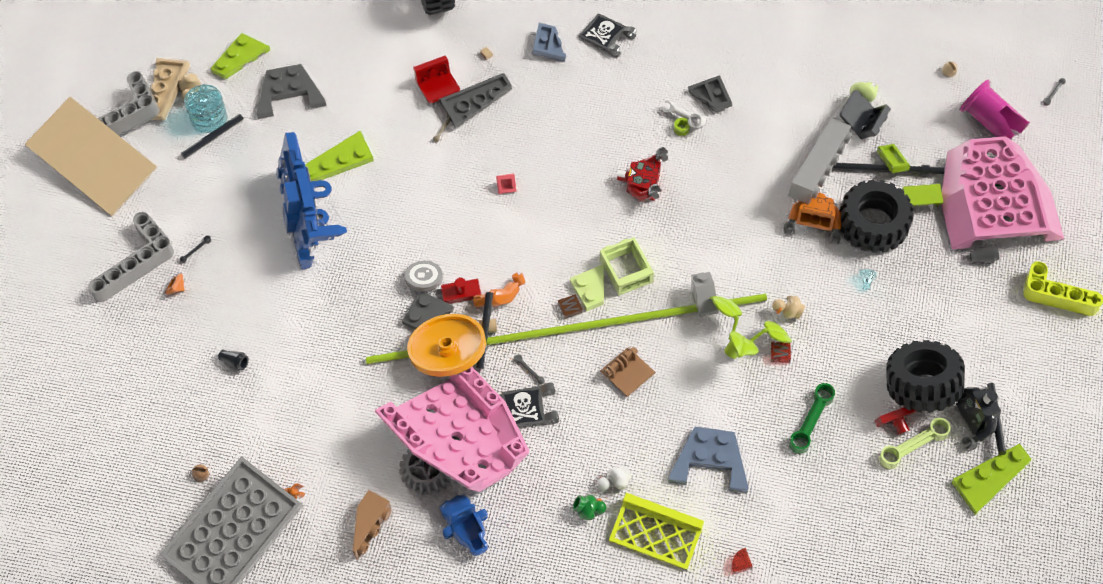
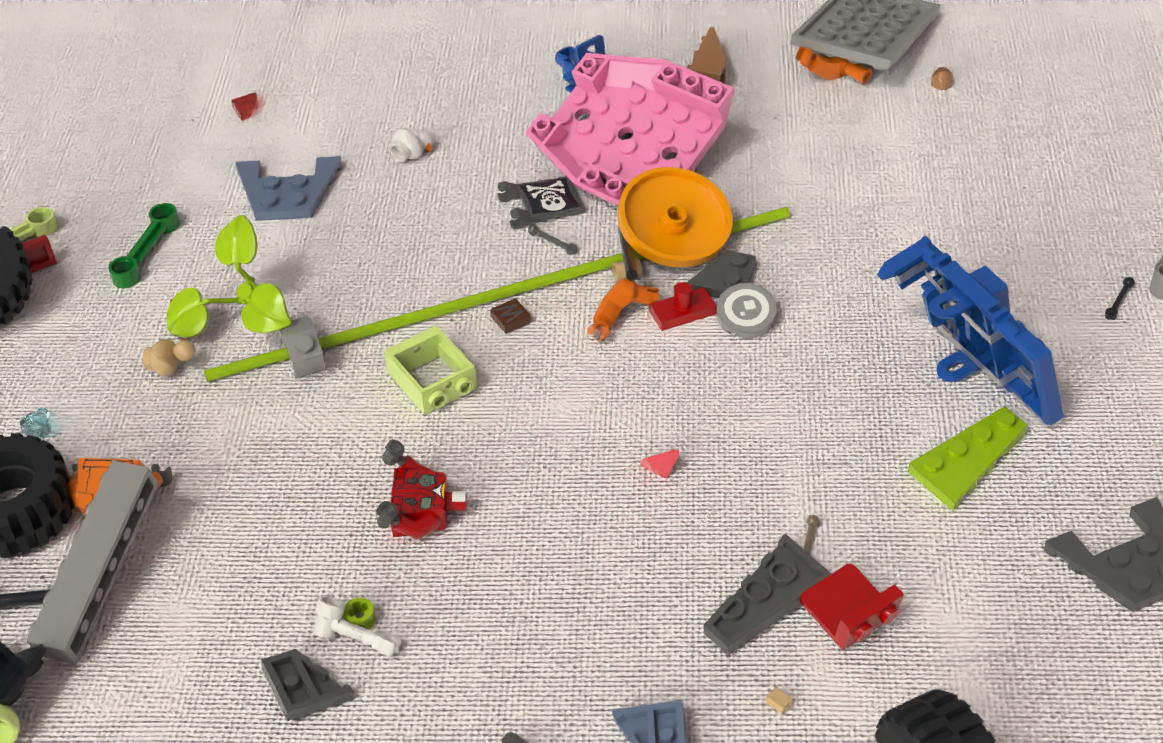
camera: 170 degrees right, 15 degrees down
(175, 285) = (1114, 244): orange slope -> none
(234, 359) = (970, 178): black cone -> none
(587, 506) = (442, 115): green animal -> none
(590, 287) = (486, 343): yellowish green wing -> none
(628, 371) = (411, 254): medium nougat hinge -> none
(663, 514) = (343, 120): neon yellow fence -> none

